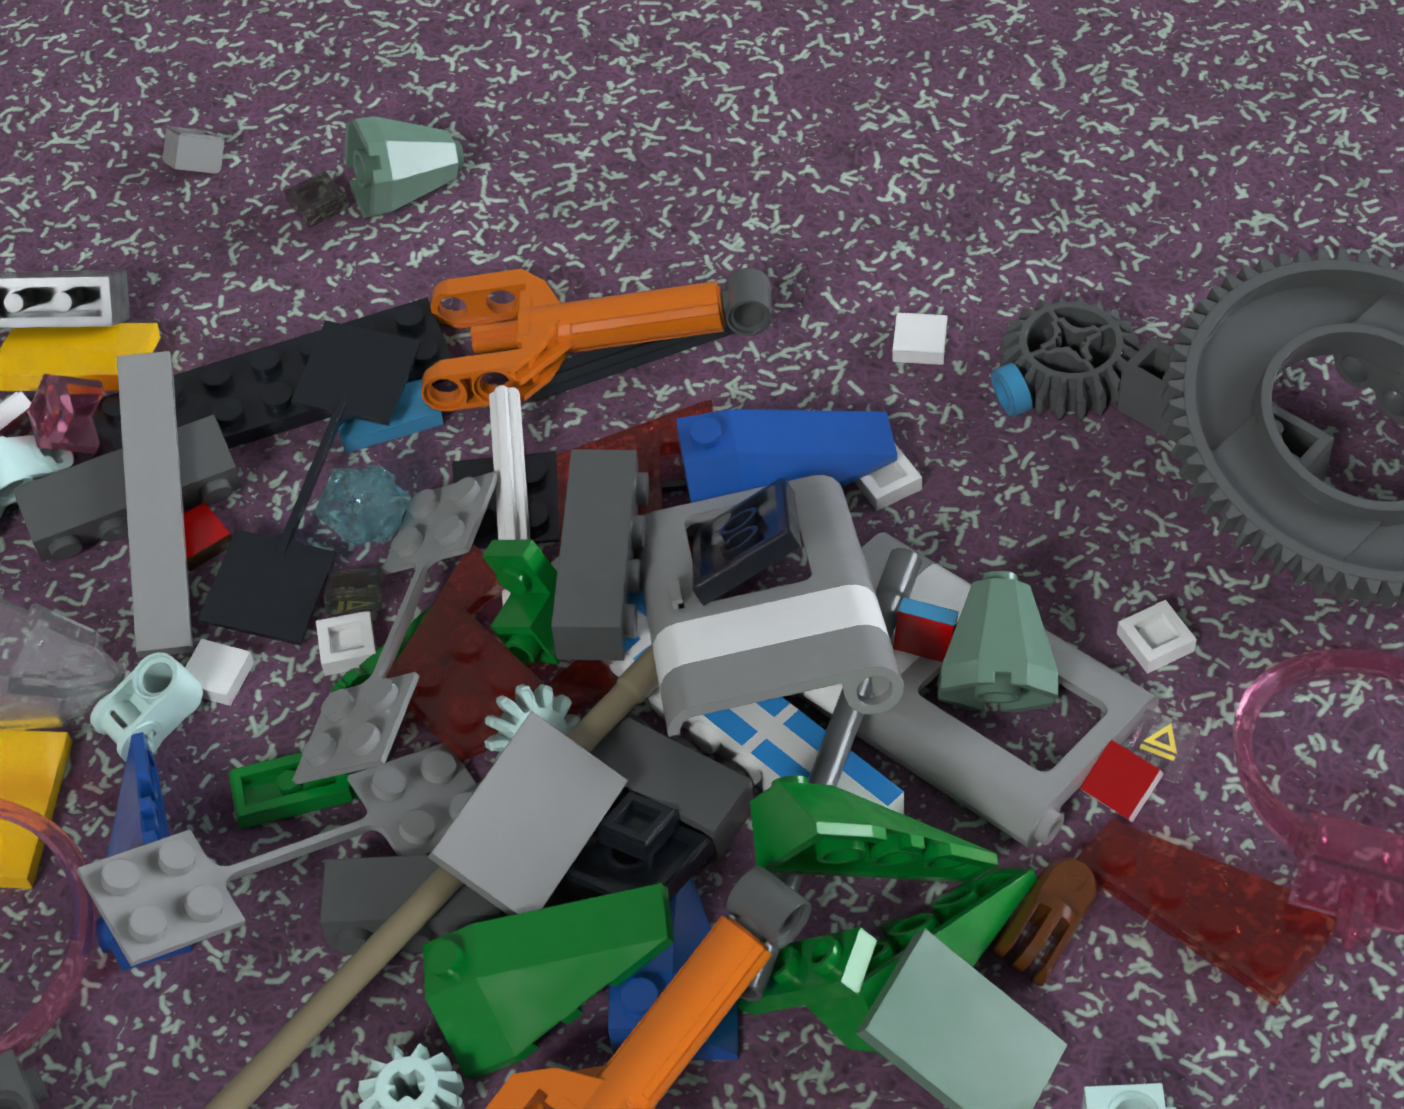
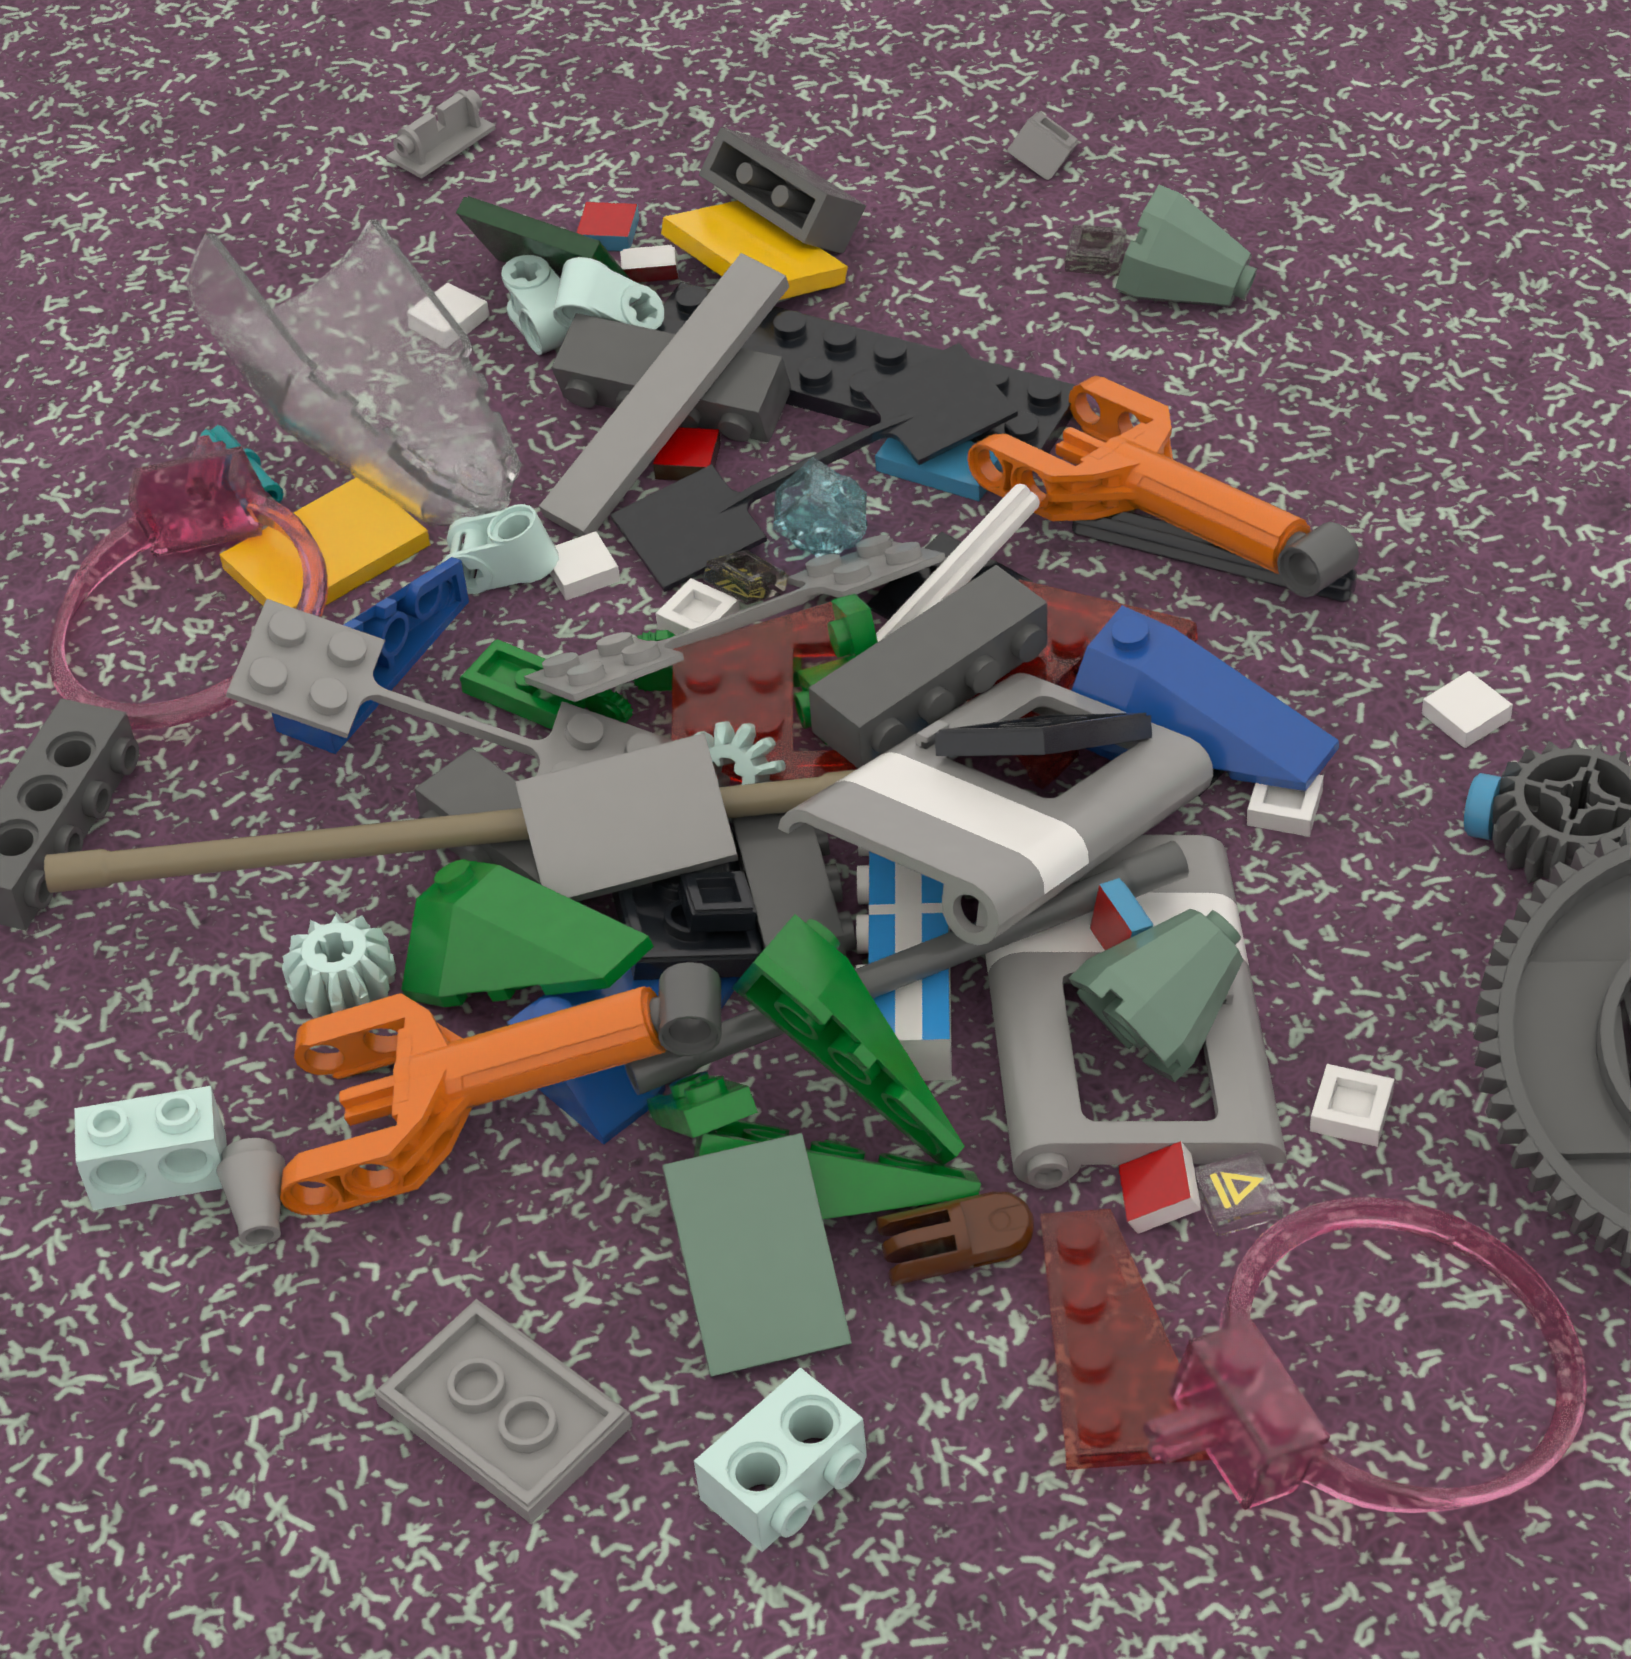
camera: 45 degrees right, 5 degrees down
(64, 413) = (677, 282): clear pink panel -> none

